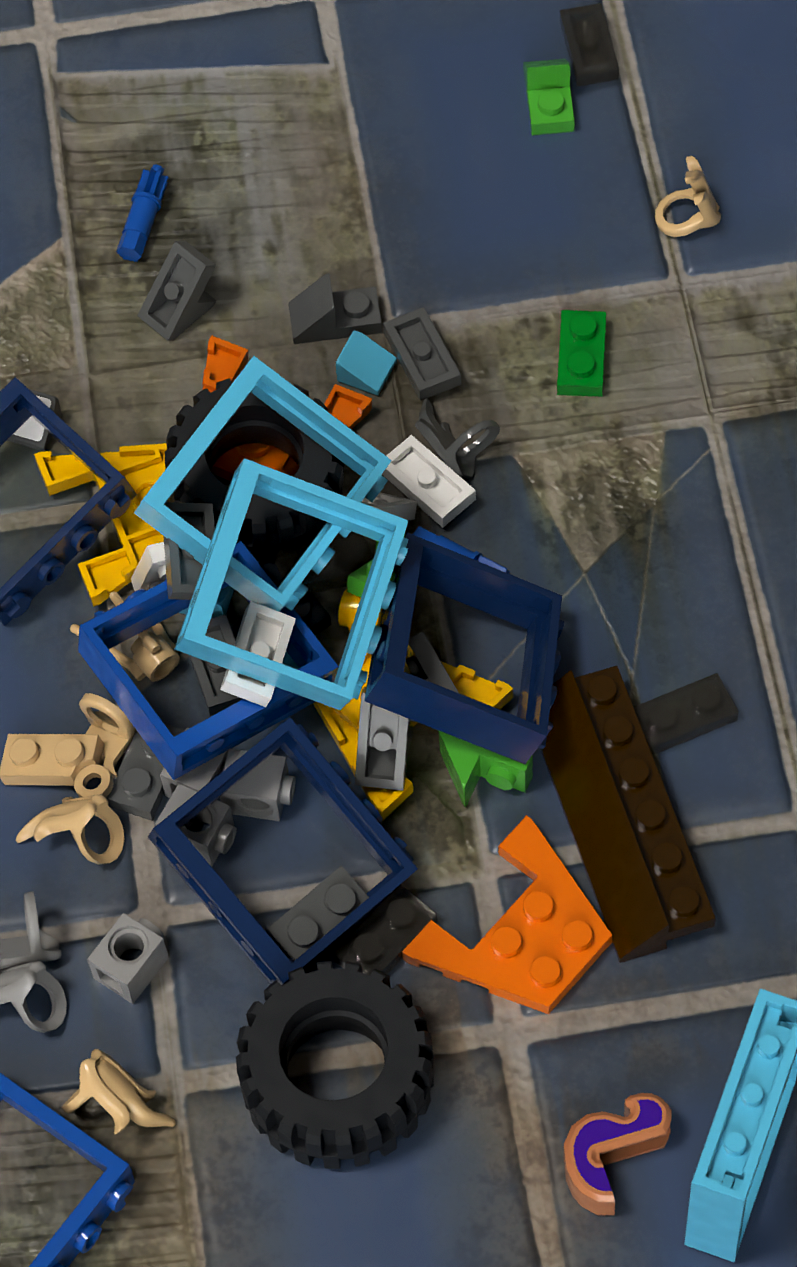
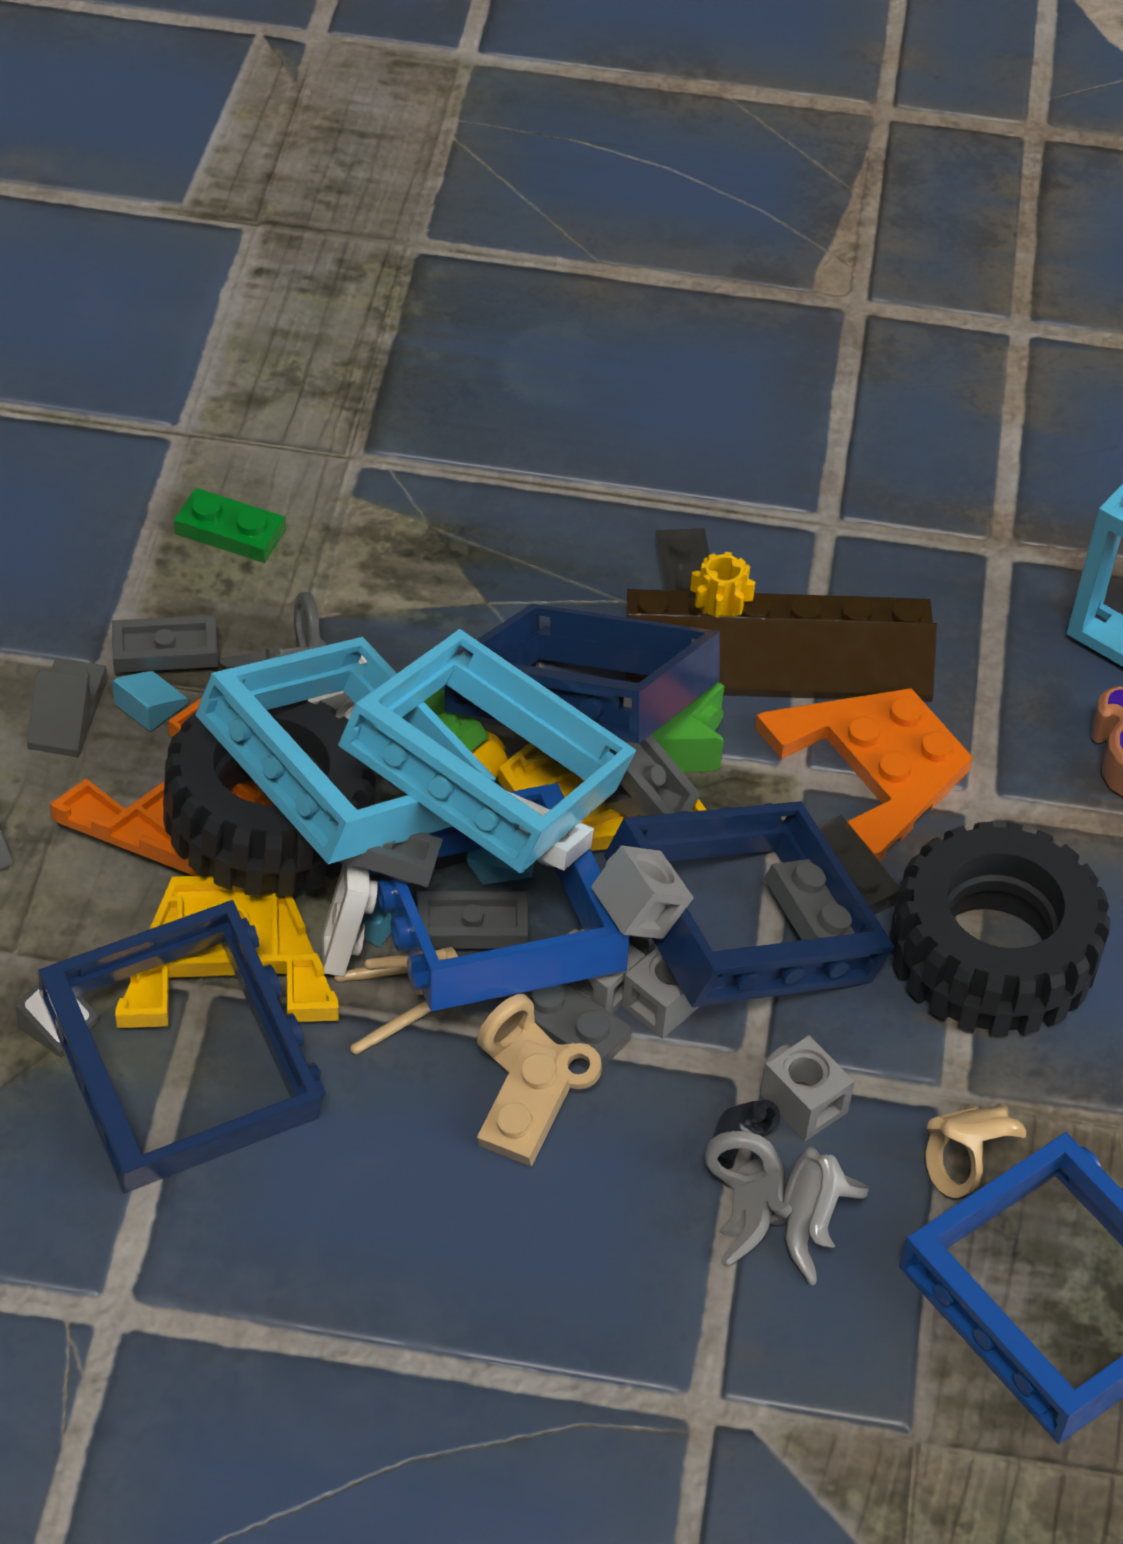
camera: 80 degrees left, 10 degrees down
(73, 816) = (616, 1093): tan piece -> none
(80, 918) = (754, 1117): none -> black arm
(189, 754) = (641, 892): none -> light grey brick
(624, 743) = (722, 585): none -> yellow gear
(703, 198) = (103, 370): tan piece -> none

